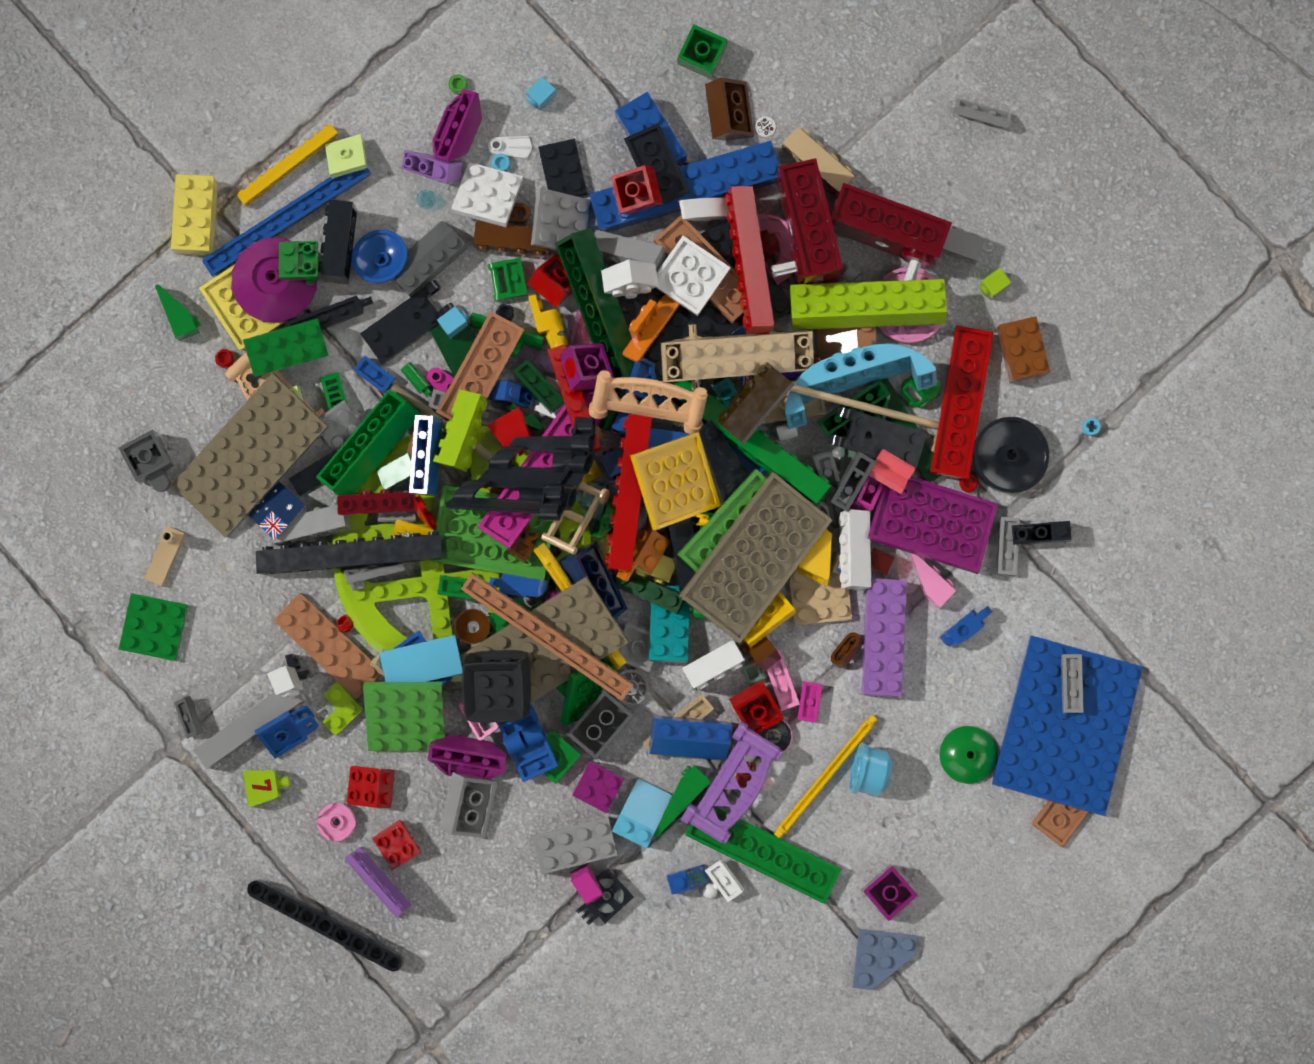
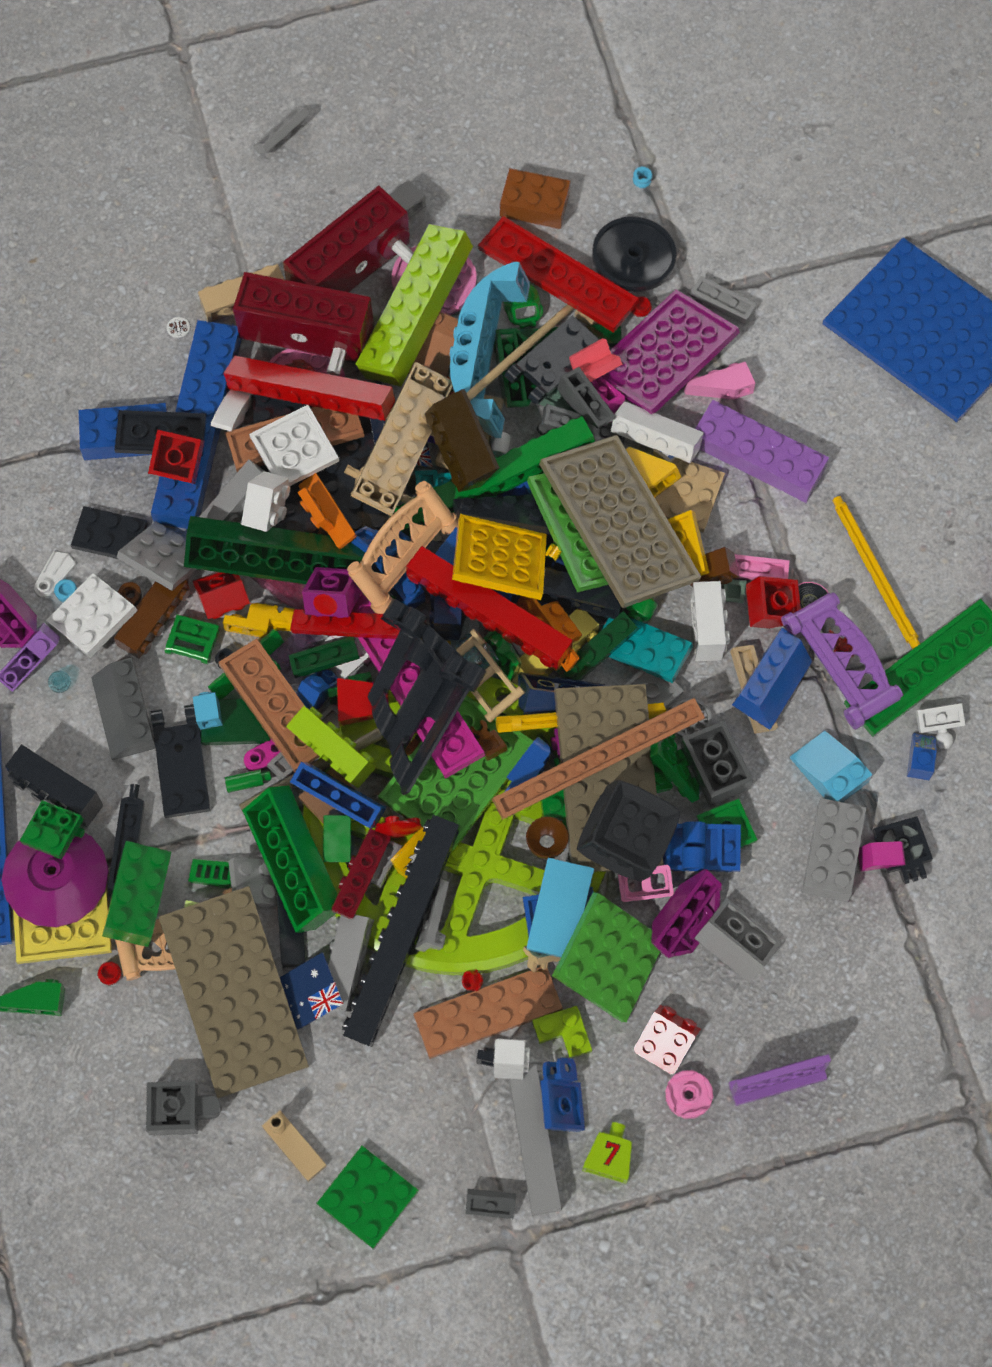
camera: 65 degrees left, 15 degrees down
(335, 925) = (807, 1150): black beam -> none
(374, 248) = (85, 745): blue dish -> none
(374, 374) = (217, 821): blue plate -> none
(396, 844) = (745, 1040): red hinge -> none
(452, 587) = (495, 835): green plate -> none
(540, 93) = (17, 516): medium azure brick -> none
(598, 787) = (781, 797): magenta brick -> none
(686, 791) = (829, 715): green slope -> none
(702, 51) = (69, 344): green brick -> none
(729, 109) = (141, 349): reddish brown slope -> none
(809, 702) = (790, 549): dark pink plate -> none
(846, 650) = (755, 492): reddish brown plate -> none
(870, 770) = (891, 522): medium azure wheel -> none
(881, 561) = (682, 414): clear red brick -> none
(954, 754) = (915, 442): green dish -> none
(965, 627) = (786, 372): blue piece -> none
(994, 283) = (455, 194): lime brick -> none
(1042, 533) = (727, 260): black slope -> none
(1072, 683) = (891, 300): light grey plate -> none

